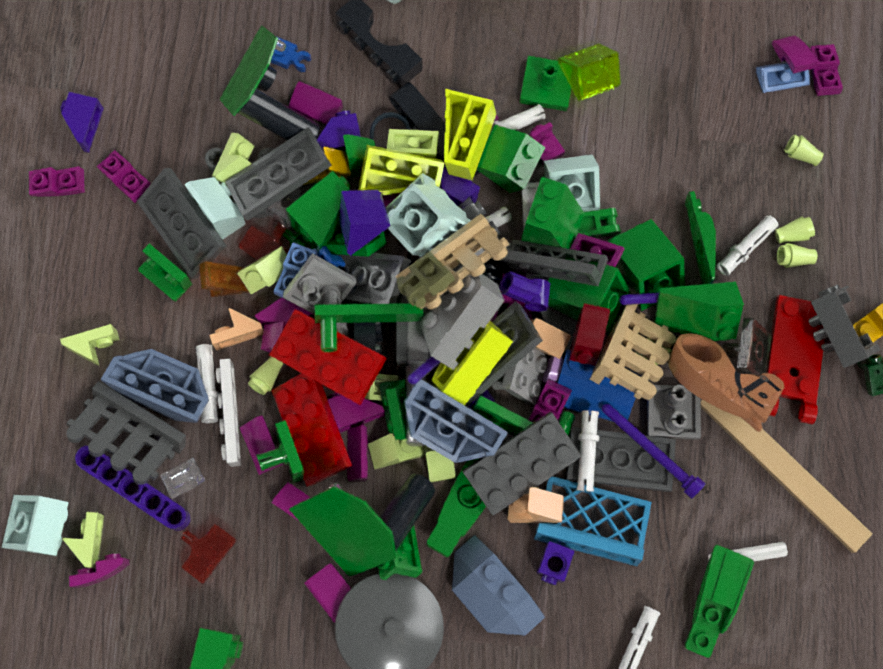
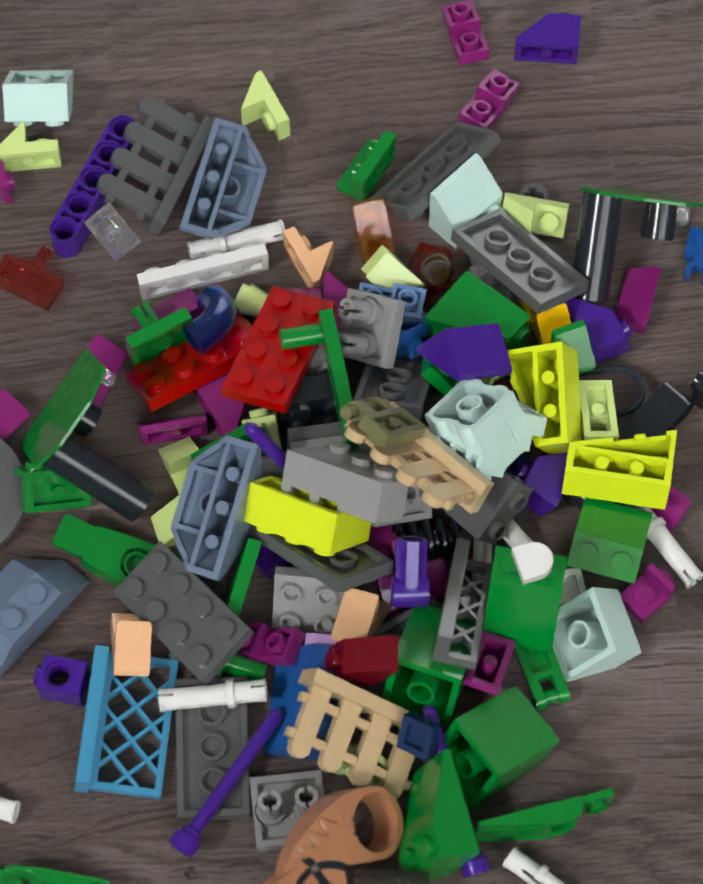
camera: 85 degrees right, 10 degrees down
(271, 235) = (436, 269): none -> dark brown plate
(285, 404) = (216, 319): none -> clear blue cylinder
(547, 197) = (532, 561): none -> white tile
(644, 308) = (418, 736): none -> dark blue plate

